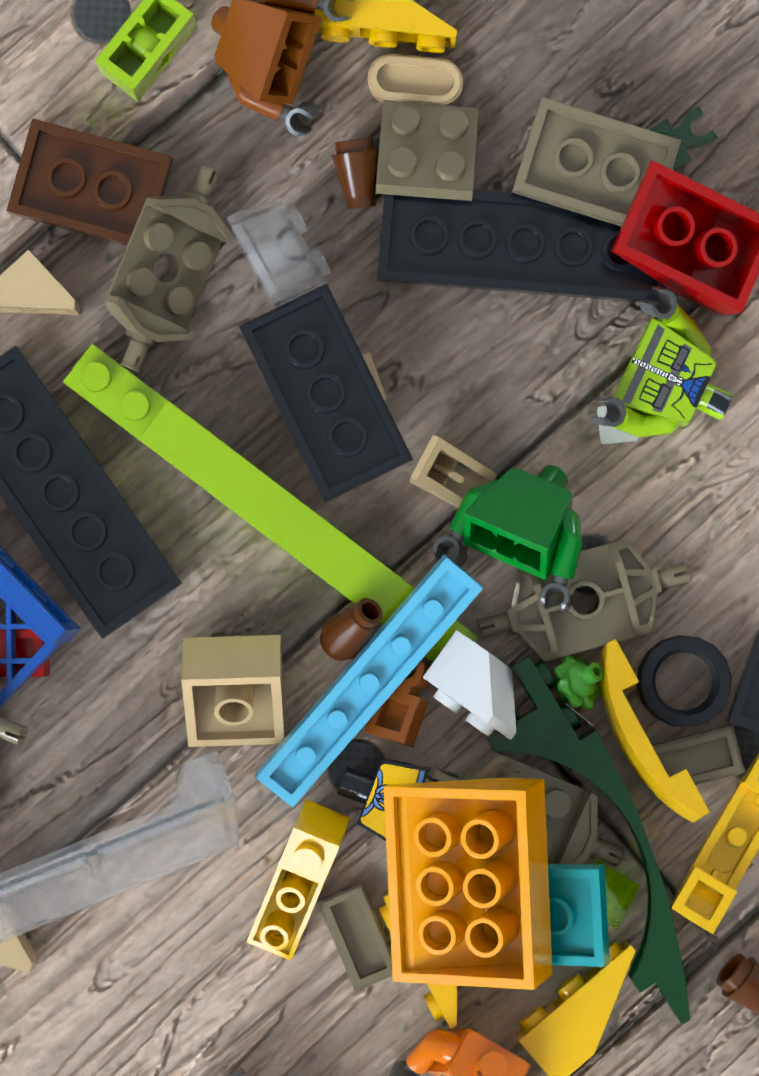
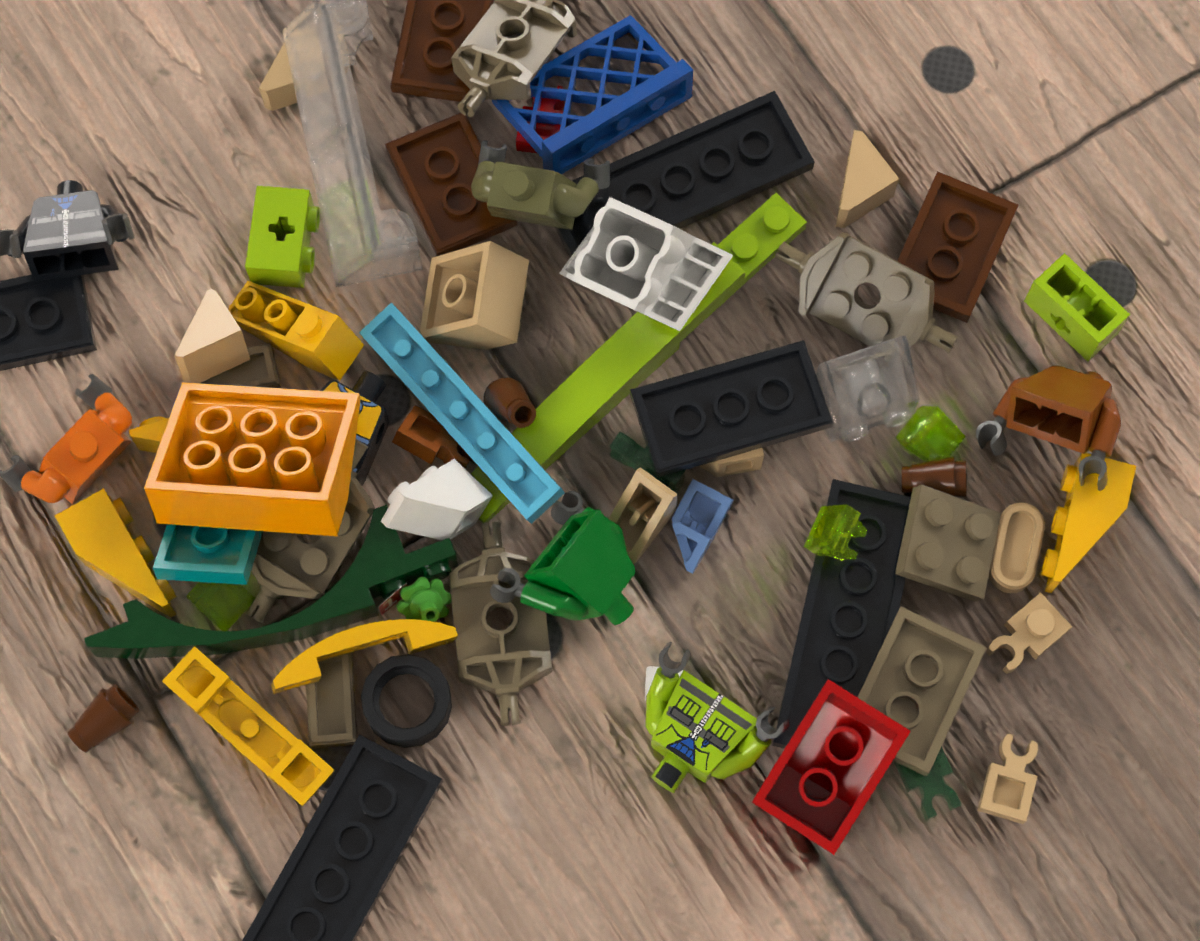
camera: 100 degrees right, 15 degrees down
(99, 741) = (438, 176): none -> reddish brown tile
(116, 644) = (532, 192): none -> olive torso
(172, 929) = (279, 213): none -> lime brick
(182, 509) = (645, 264): none -> white slope
(306, 183) = (930, 434): none -> clear neon green slope
(334, 962) = (211, 342): none -> tan slope
(388, 482) = (633, 455): none -> clear green plate
(440, 413) = (698, 521): none -> medium blue slope
(442, 267) = (833, 531): none -> clear neon green tile
(500, 54) = (1032, 629): none -> tan plate
(672, 61) = (1008, 788): none -> tan plate

